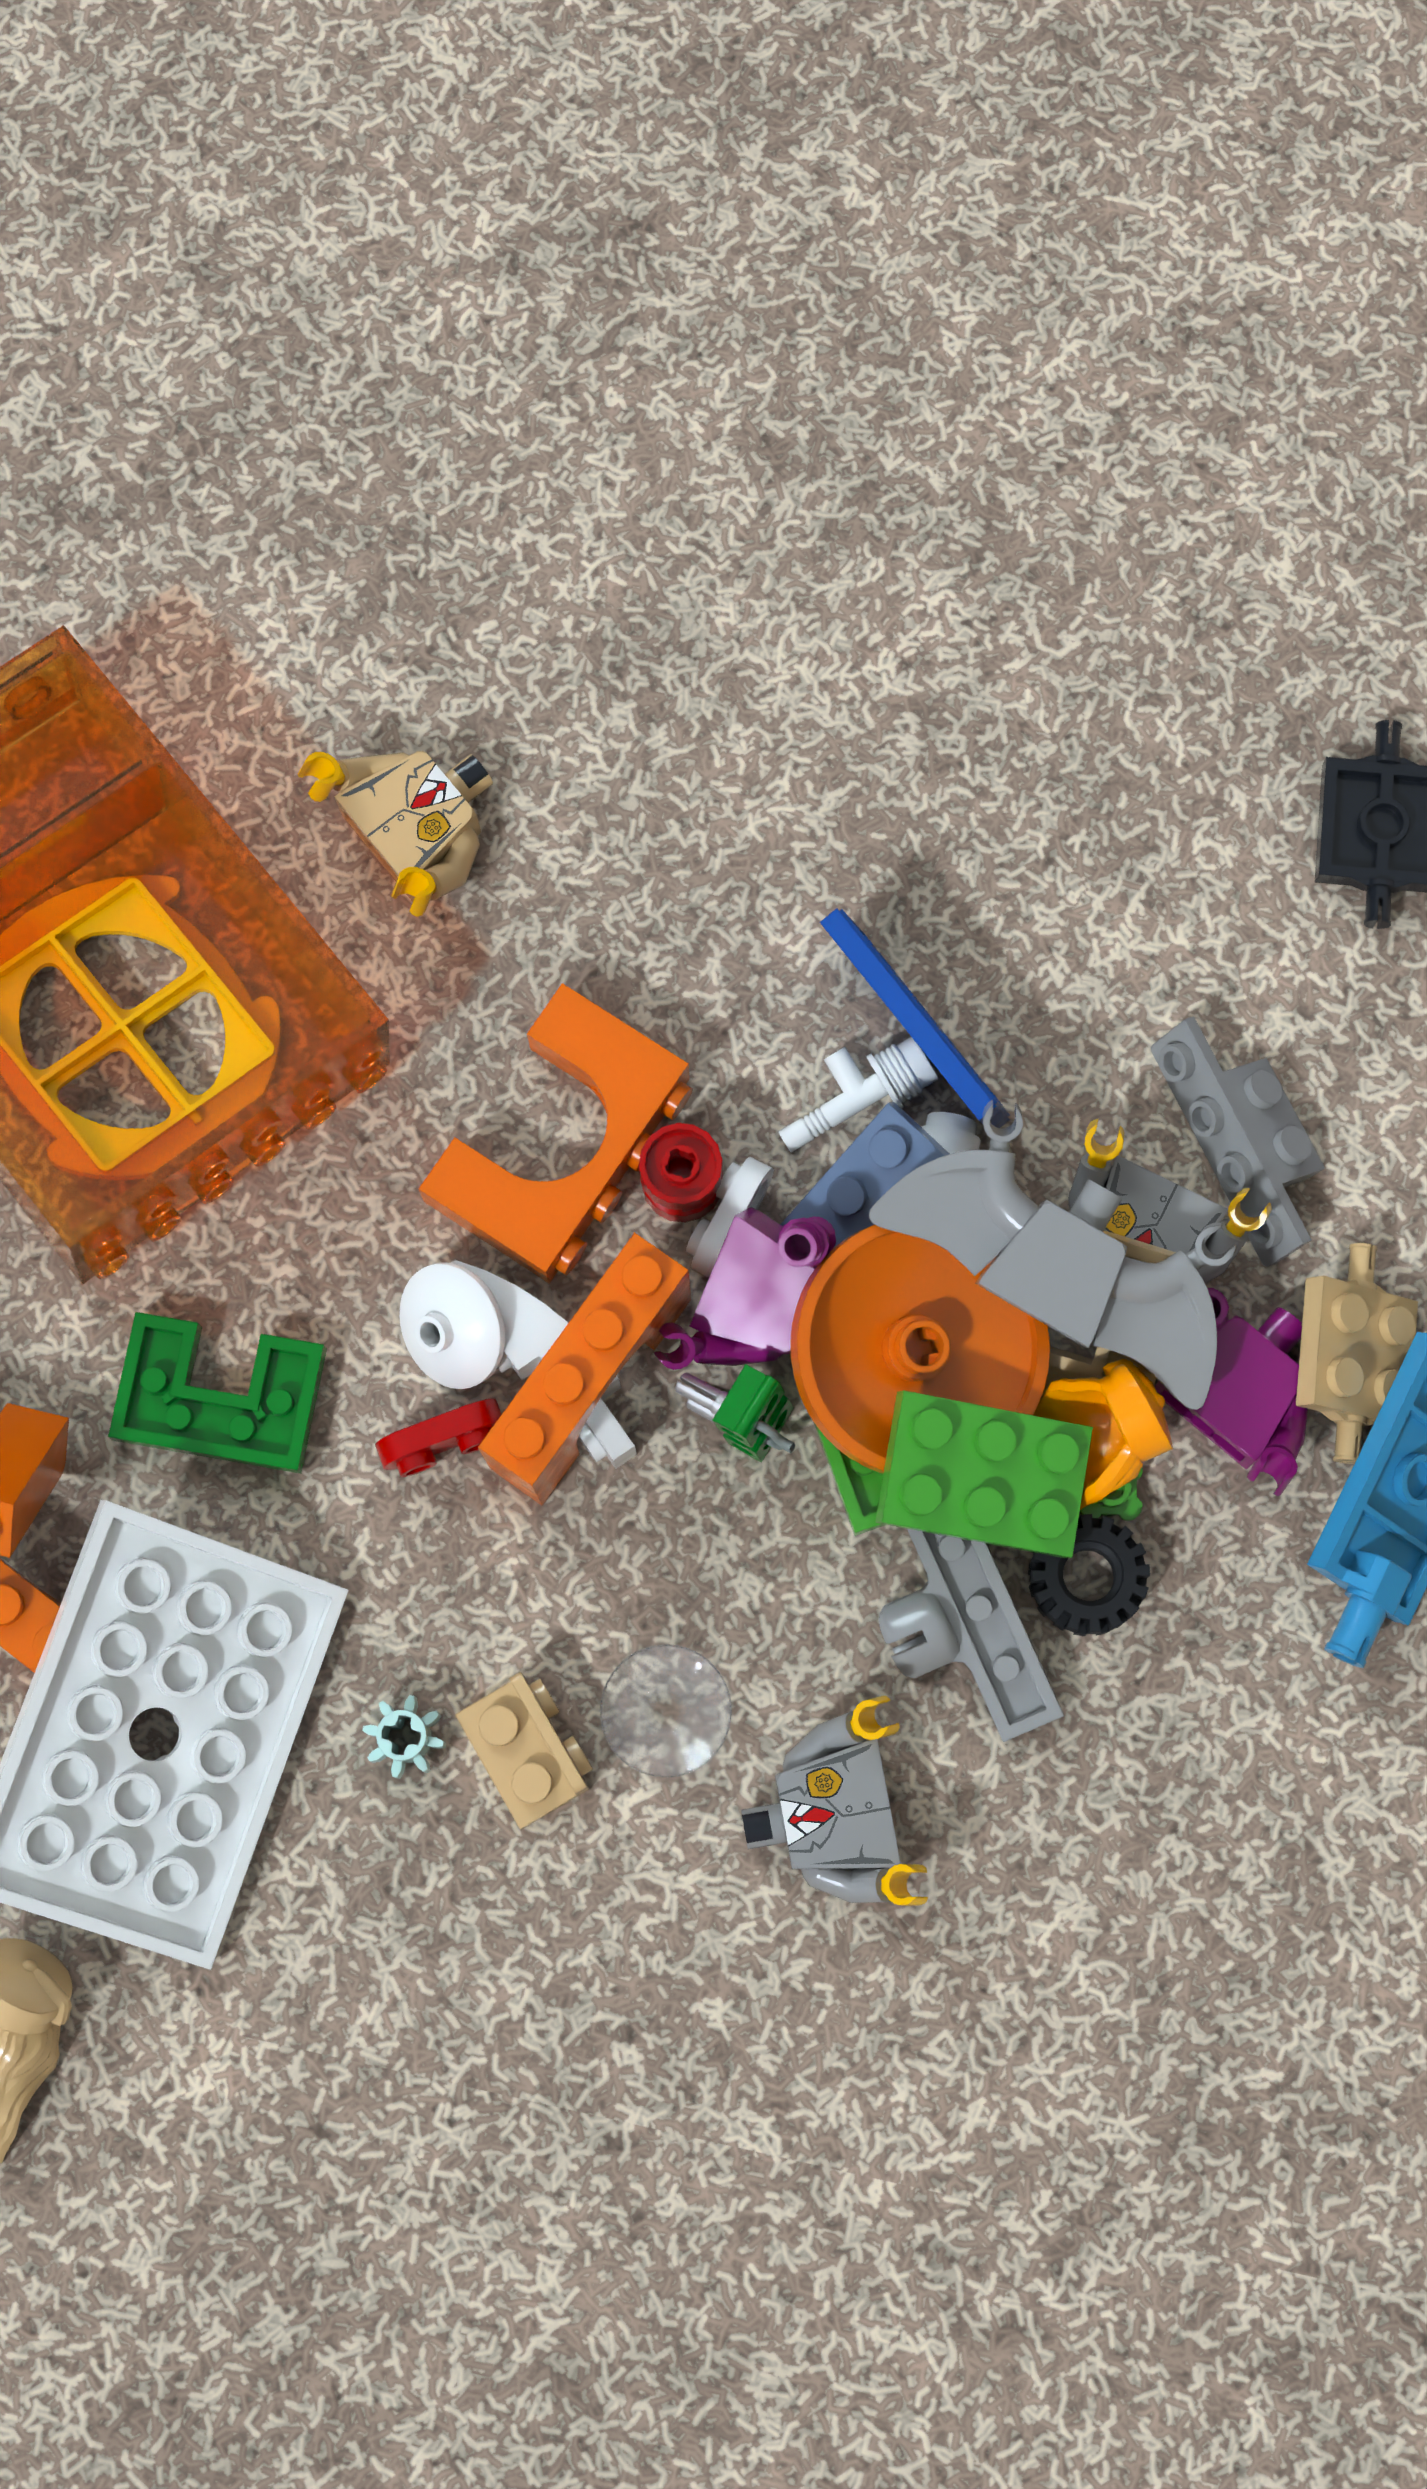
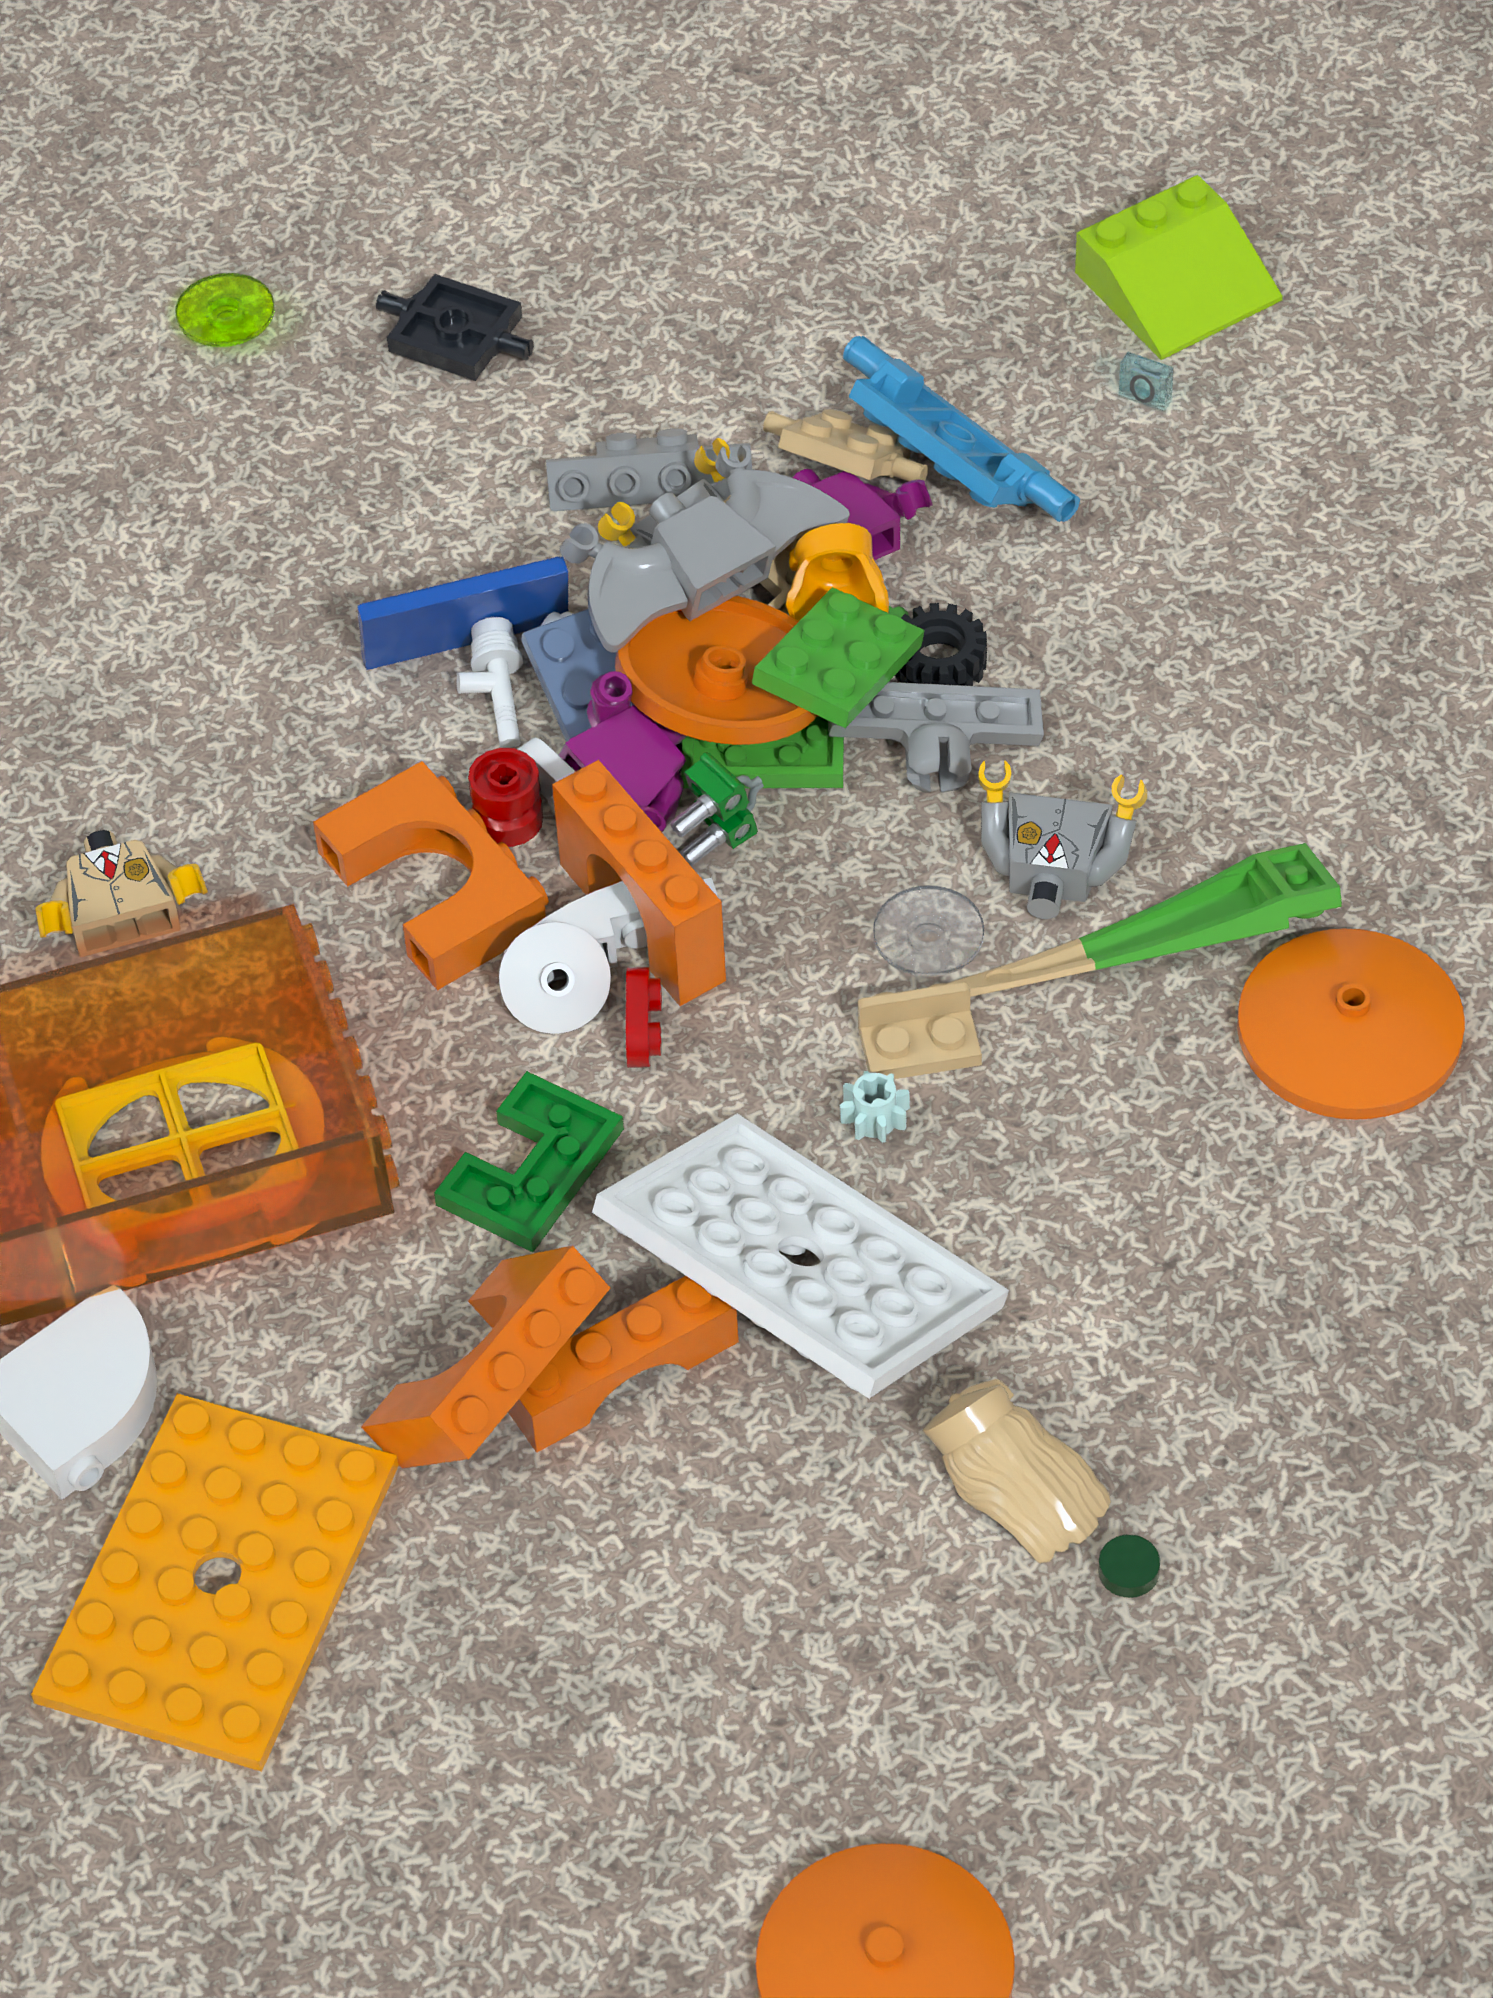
camera: 70 degrees left, 25 degrees down
(728, 2170) = (1350, 1023): none -> orange dish
(820, 2051) = (1232, 905): none -> bright green plate
(1304, 534) = (225, 309): none -> clear neon green dish

